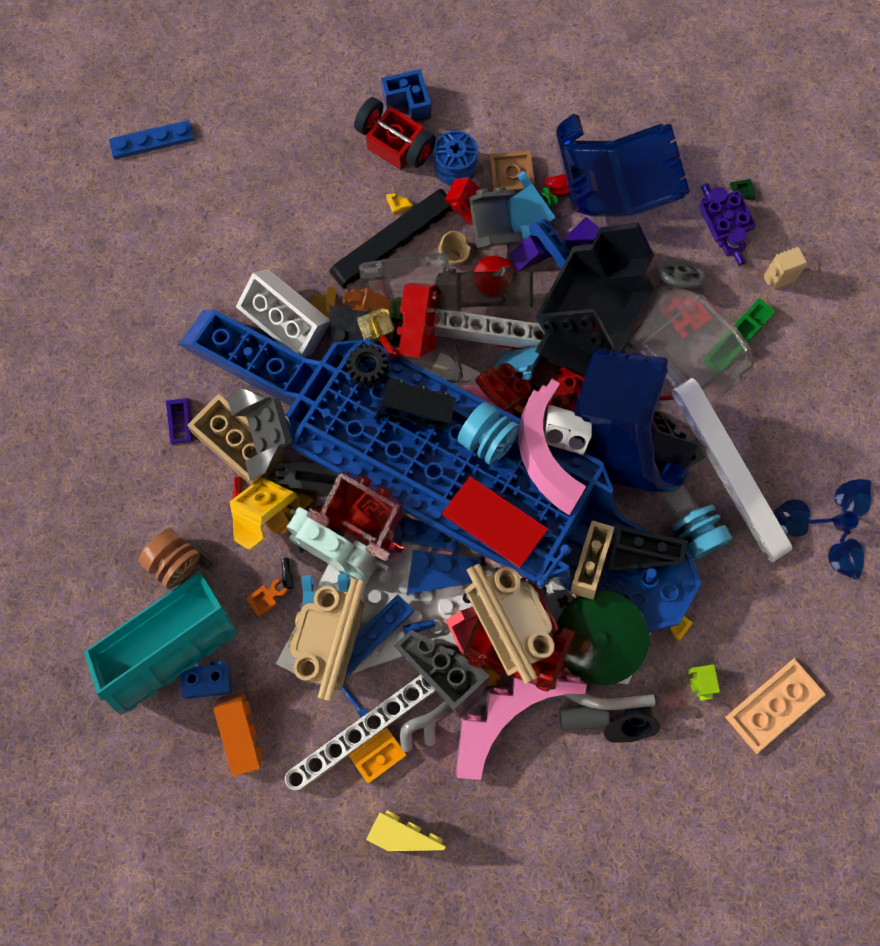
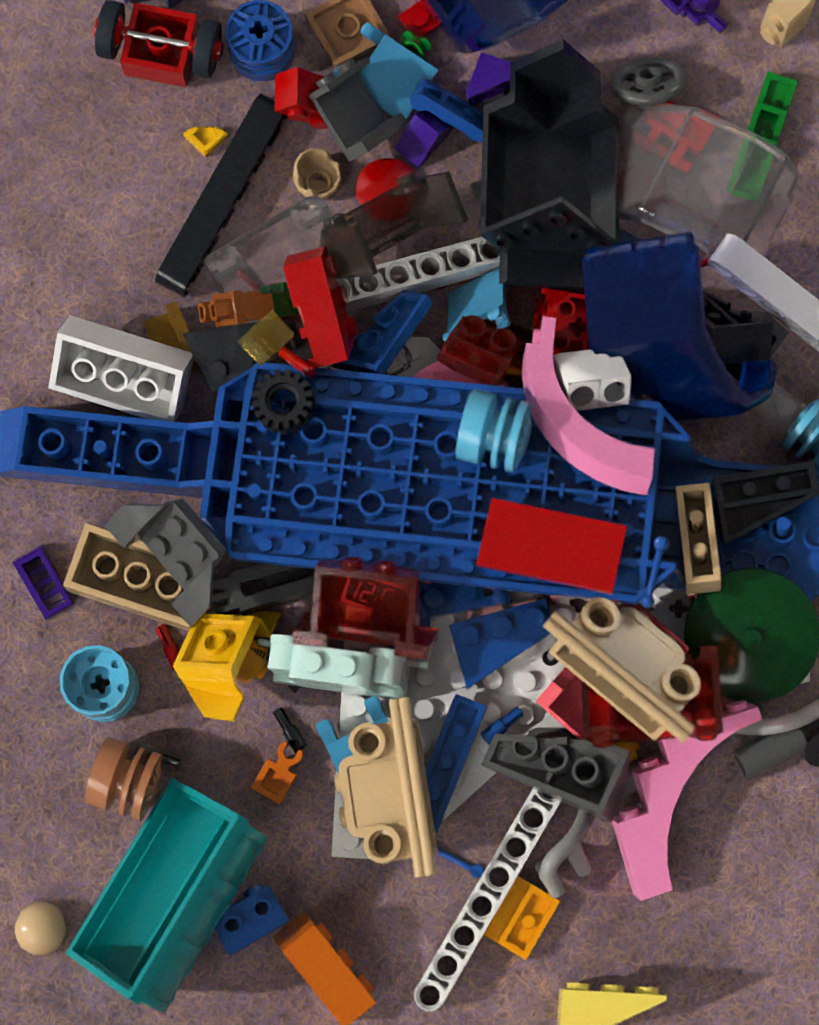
camera: 20 degrees left, 5 degrees up
(77, 630) = (40, 928): none -> tan hair
(174, 486) = (84, 673): none -> medium azure wheel
(415, 404) = (375, 431): black wedge -> none
(460, 352) = (386, 337): none -> blue wing

